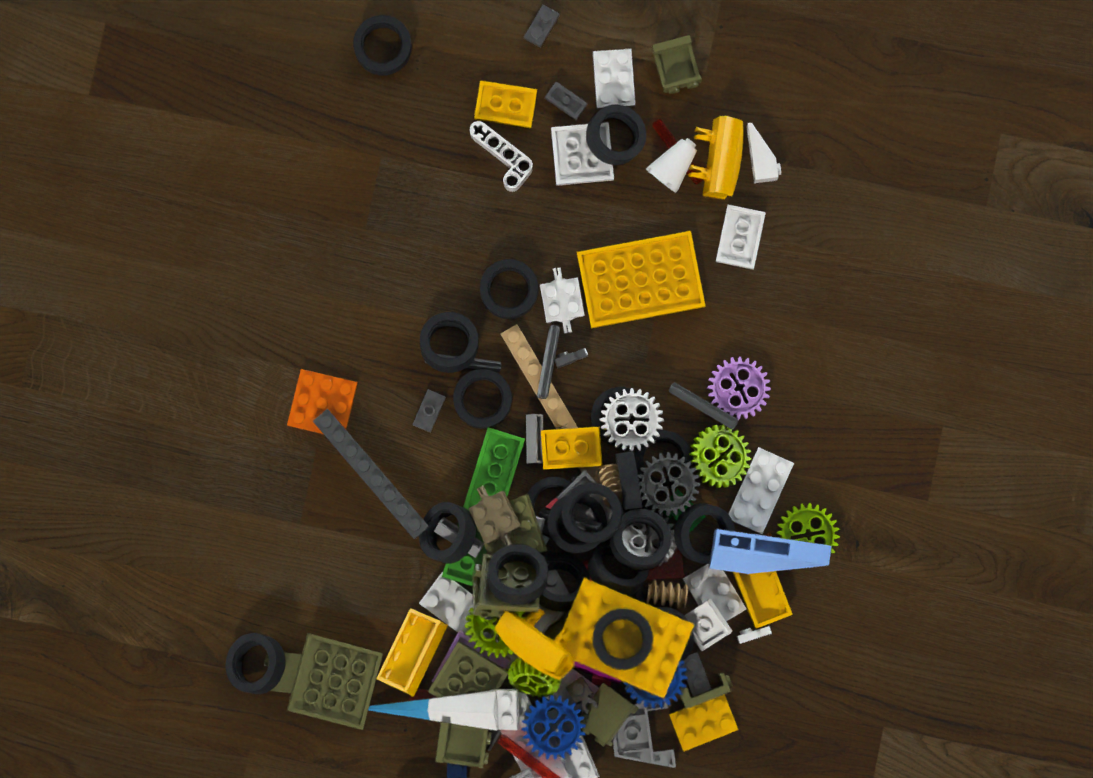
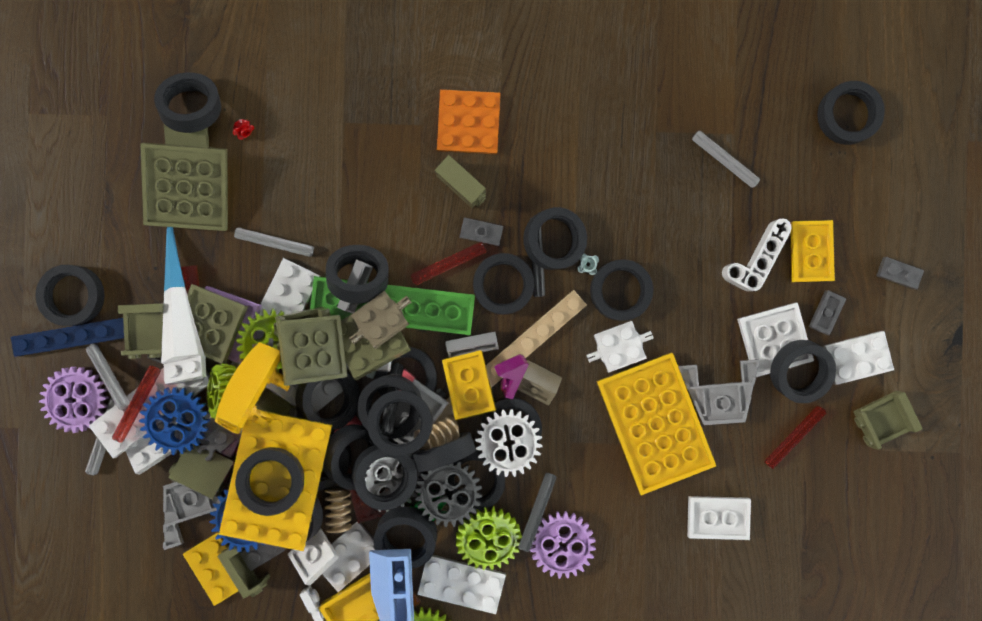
camera: 75 degrees right, 5 degrees up
(288, 619) = (242, 128): none -> red plate
(371, 474) = (404, 183): dark grey plate -> none
(380, 420) = (461, 182): none -> olive brick
(402, 609) = (274, 242): none -> light grey axle
(403, 168) = (726, 159): none -> light grey axle
(412, 652) = (231, 260): yellow slope -> none
(453, 447) = (448, 263): none -> clear red axle
(483, 312) = (593, 260): none -> light aqua plate
(523, 553) = (345, 356): black tyre -> none
(548, 362) = (553, 344): dark grey axle -> none
(566, 358) = (560, 362): flat silver plate -> none
(568, 404) = (512, 373): none -> magenta slope
(582, 383) = (539, 383): none -> dark tan panel
(631, 213) = (724, 401): none -> light grey wing
(673, 164) = (783, 437): white cone -> none
(723, 157) = (801, 486): yellow piece -> none
(762, 159) = (804, 526): white slope -> none

